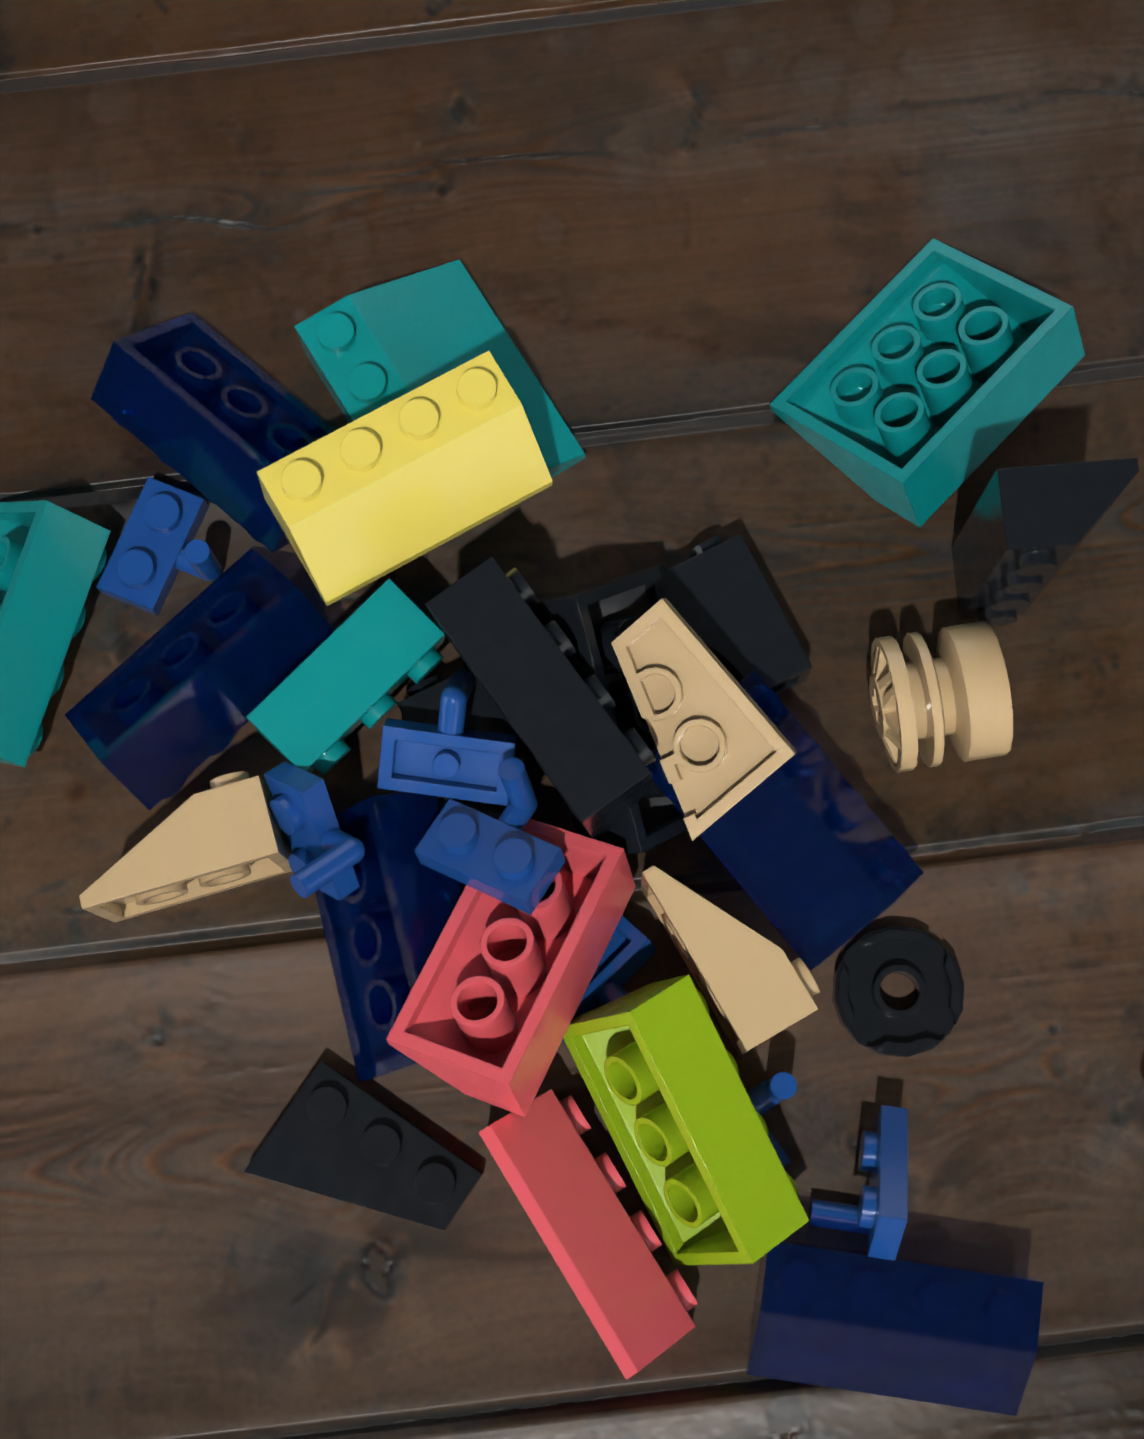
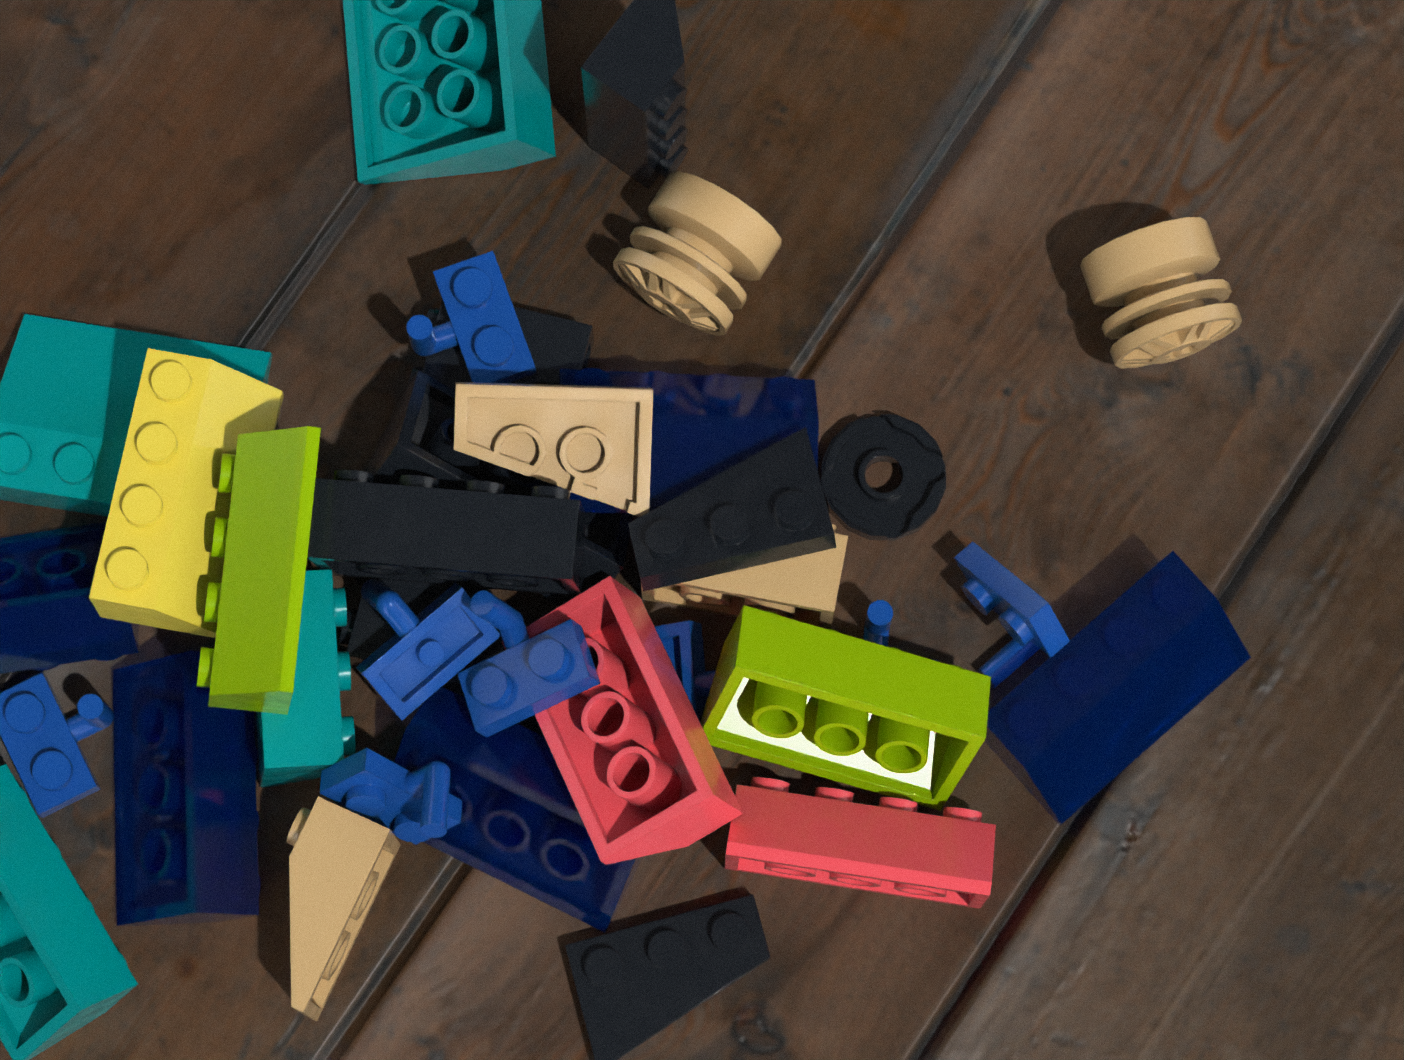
camera: 55 degrees left, 0 degrees up
(388, 581) = (262, 570): none -> lime slope
(736, 581) = (479, 322): none -> blue plate
(753, 910) = (738, 519): none -> black wing

